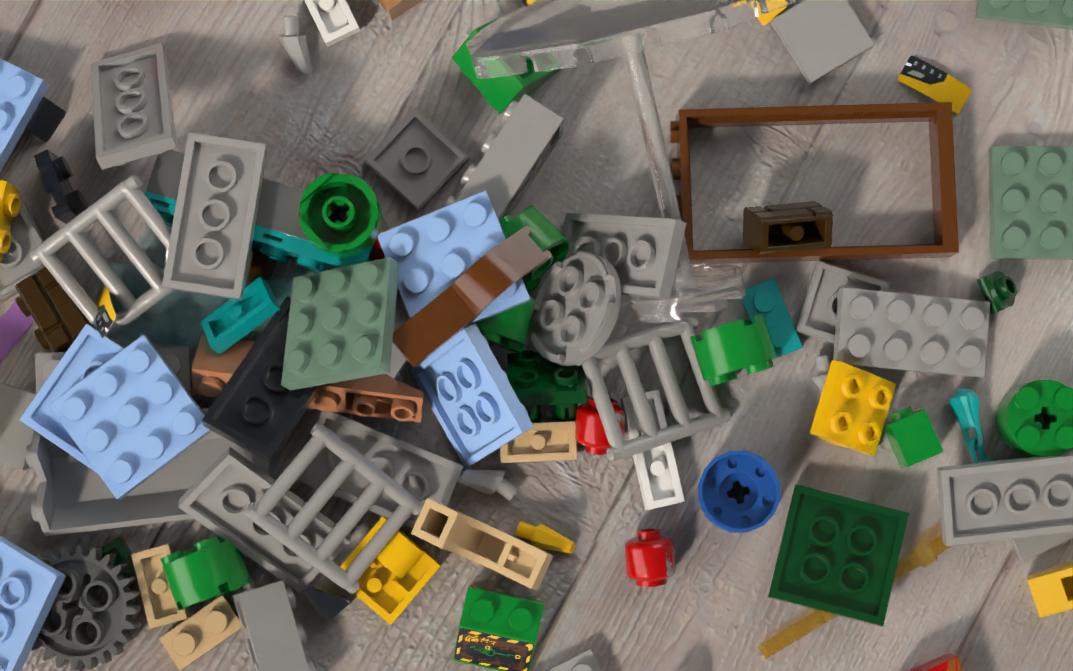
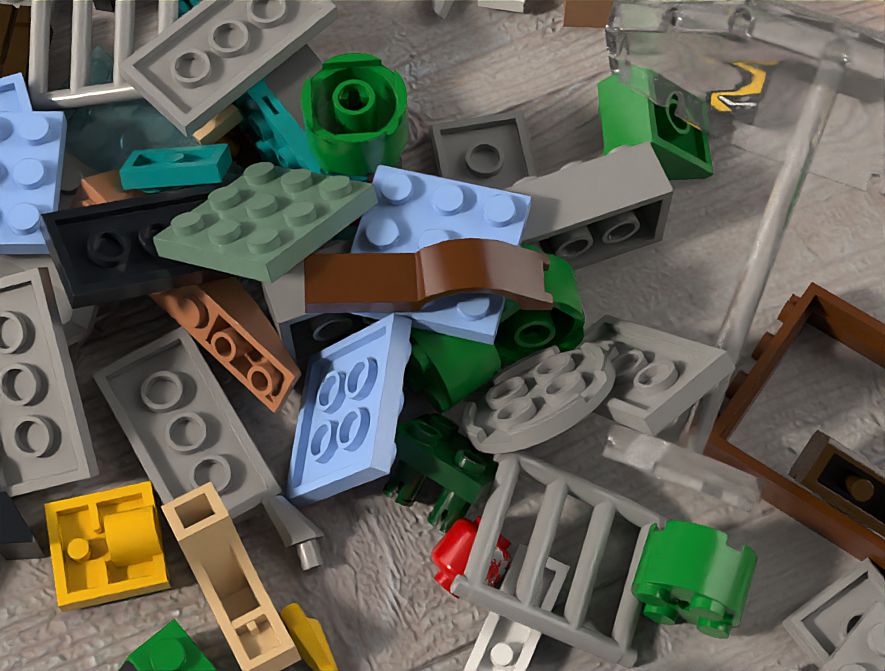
camera: 35 degrees right, 20 degrees down
(105, 313) = (57, 72): sticker -> none
(291, 534) = (31, 408): light grey bar -> none
(542, 443) = (386, 529): tan plate -> none
(767, 300) = (769, 589): teal plate -> none

